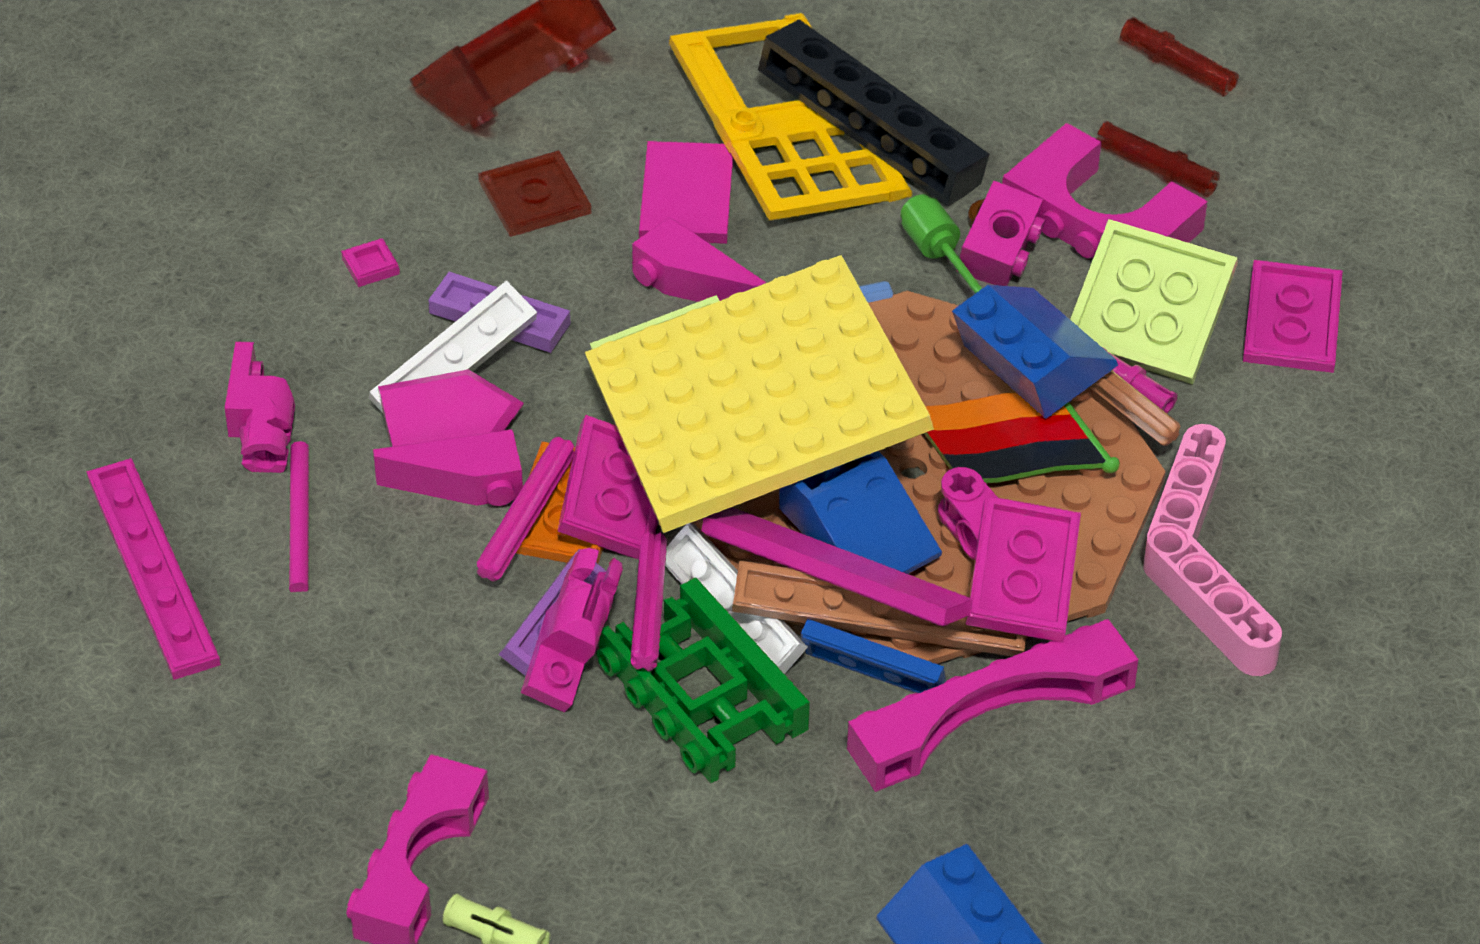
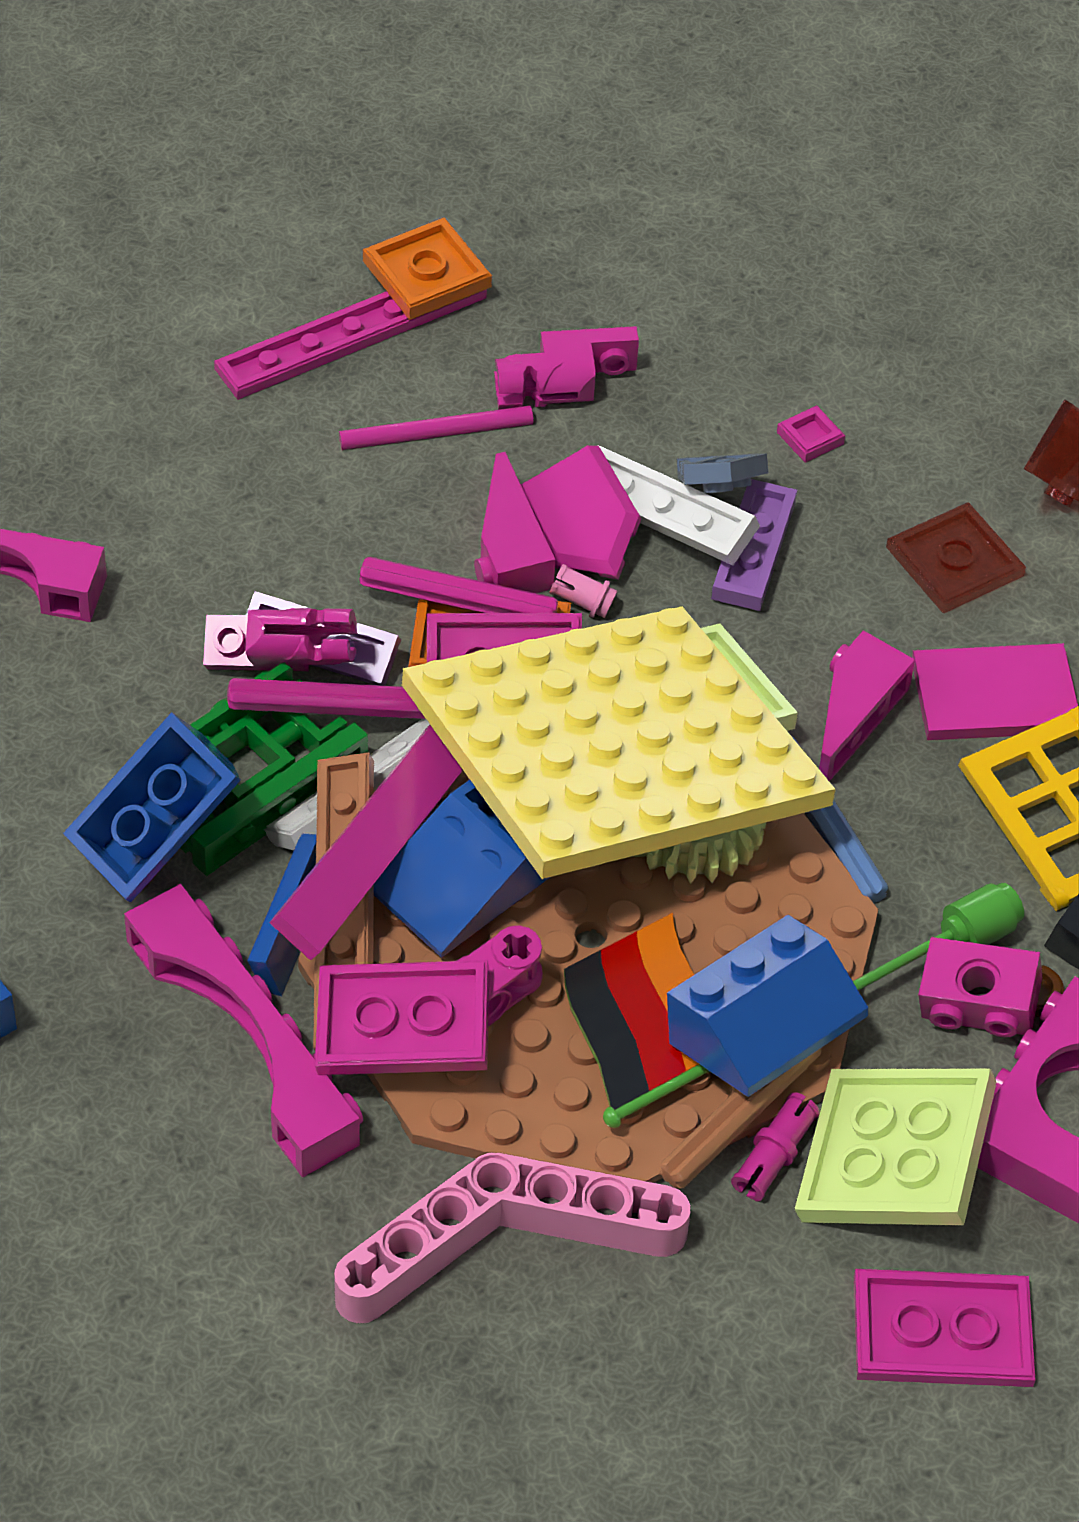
camera: 80 degrees right, 5 degrees up
(99, 493) = (427, 268): none -> orange tile
(430, 308) = (721, 472): none -> sand blue wing
(538, 423) = (587, 592): none -> bright pink pin
(782, 716) = (152, 805): none -> blue slope

